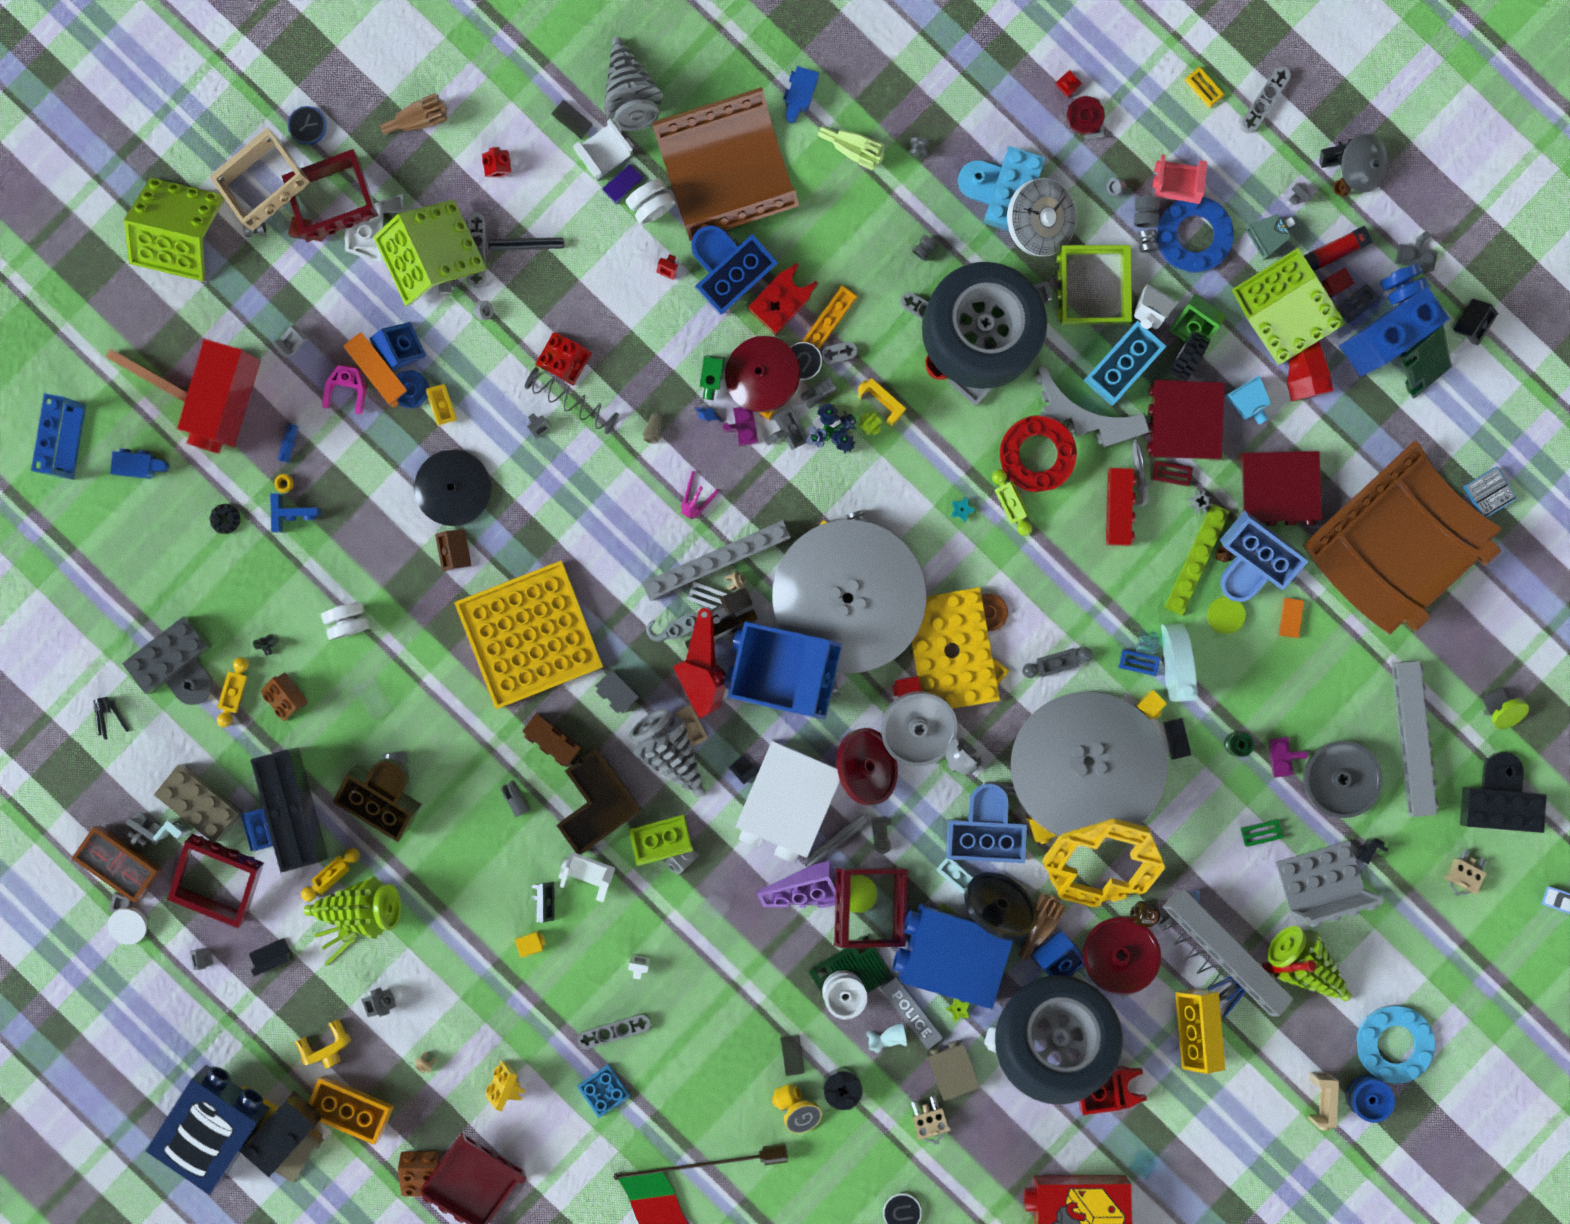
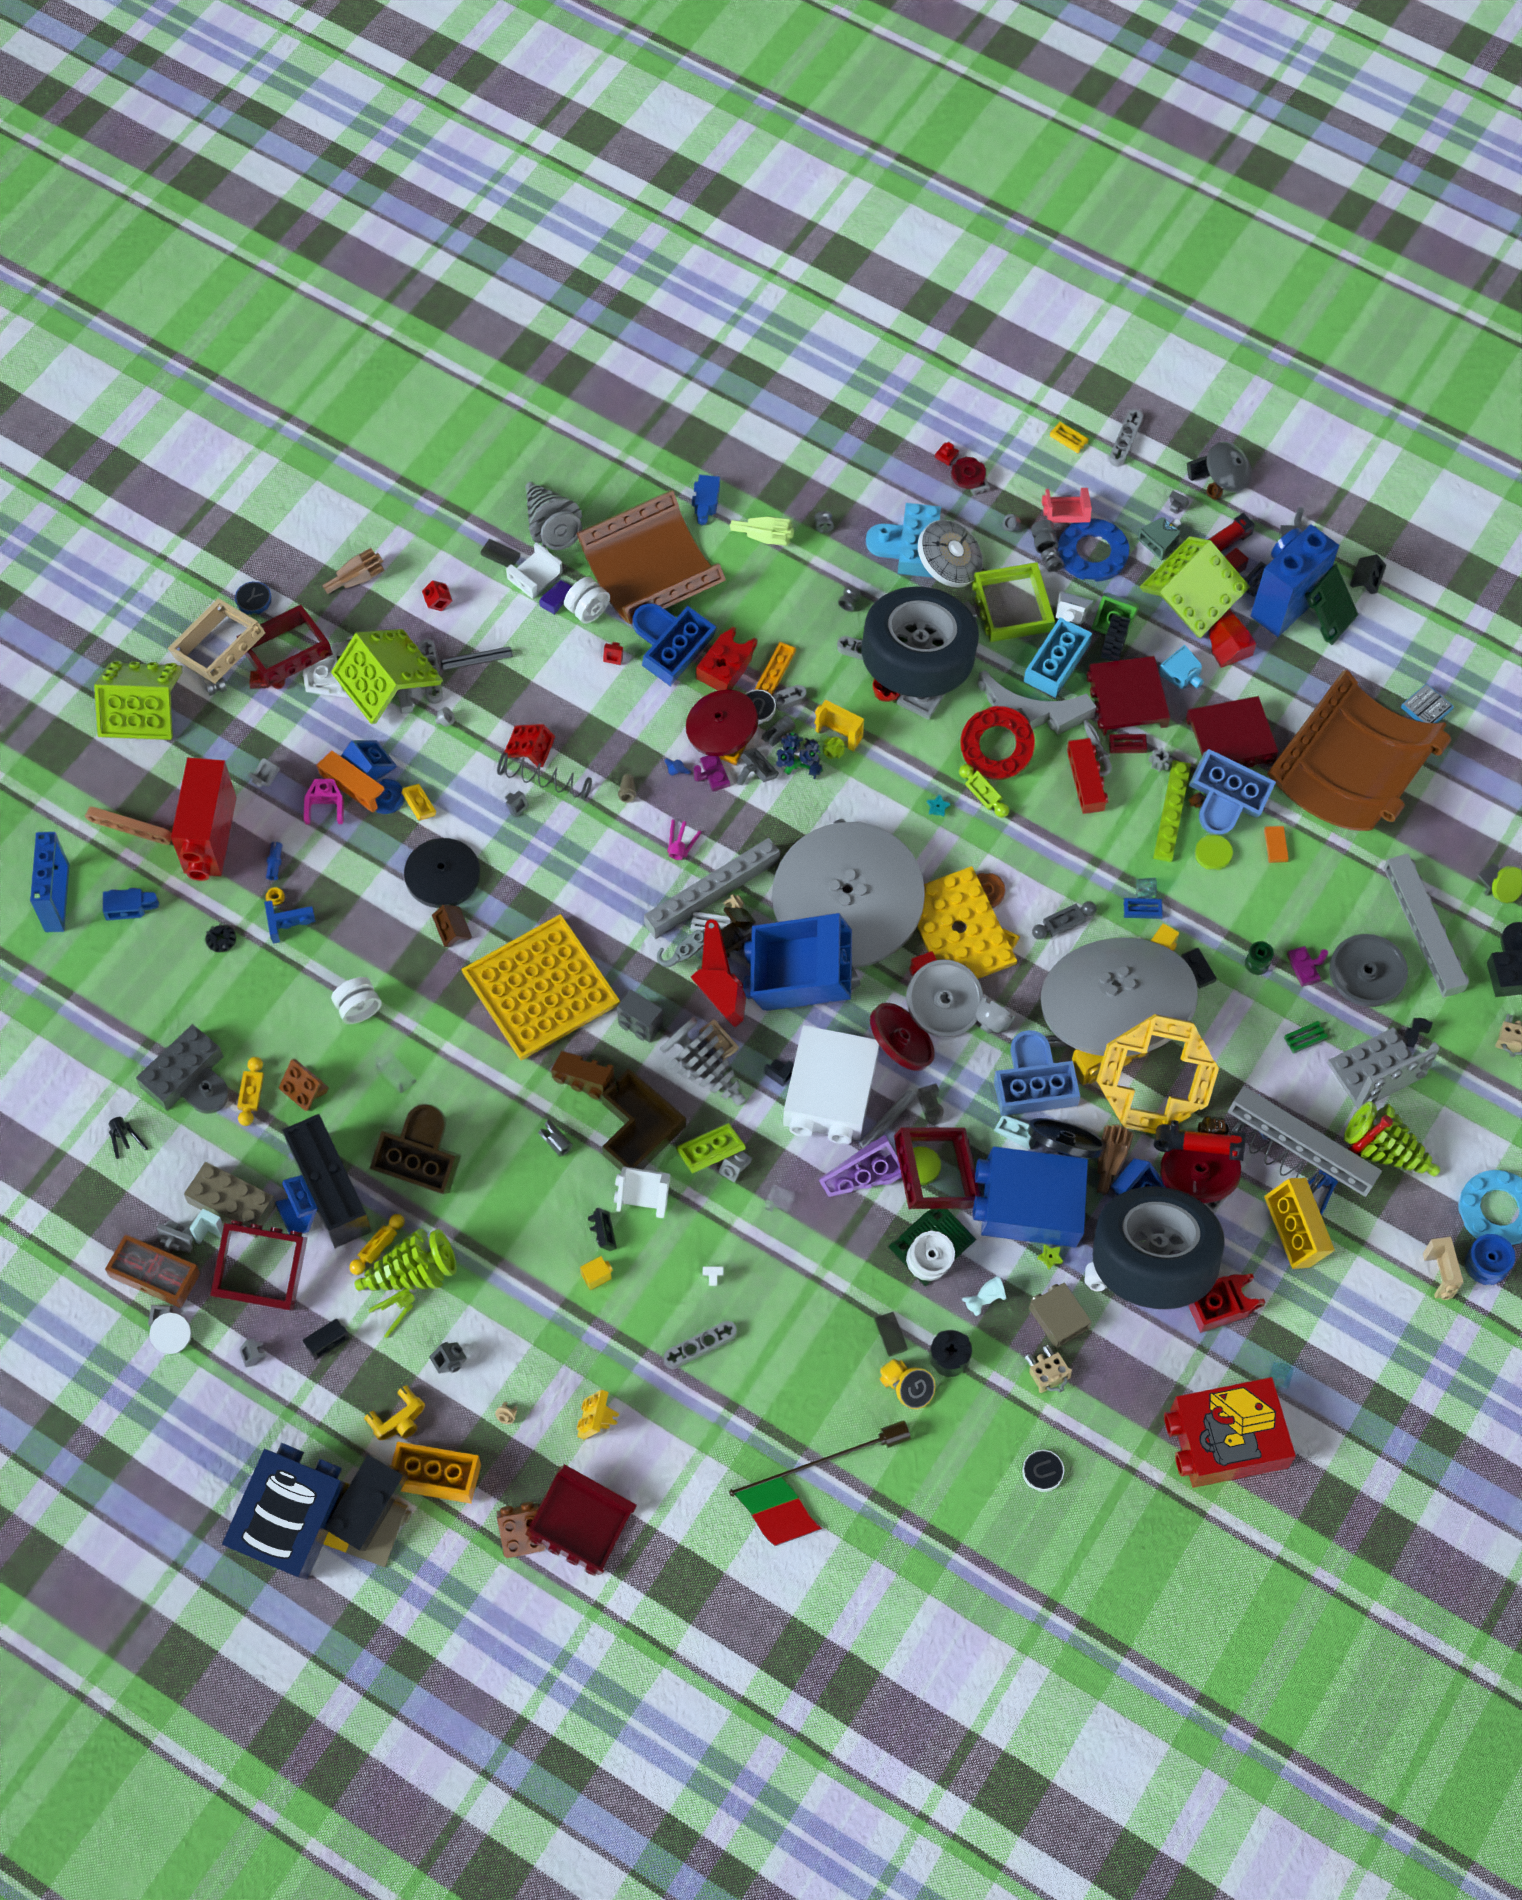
camera: 10 degrees left, 25 degrees down
(265, 644) = (278, 1042): black plant -> none
(603, 1090) = (701, 1407): dark azure tile -> none
(711, 366) = (673, 730): green torso -> none
(911, 1013) = (1002, 1267): light grey tile -> none
(1101, 919) = (1170, 1138): none -> piece
(1178, 663) = (1181, 896): light aqua brick -> none

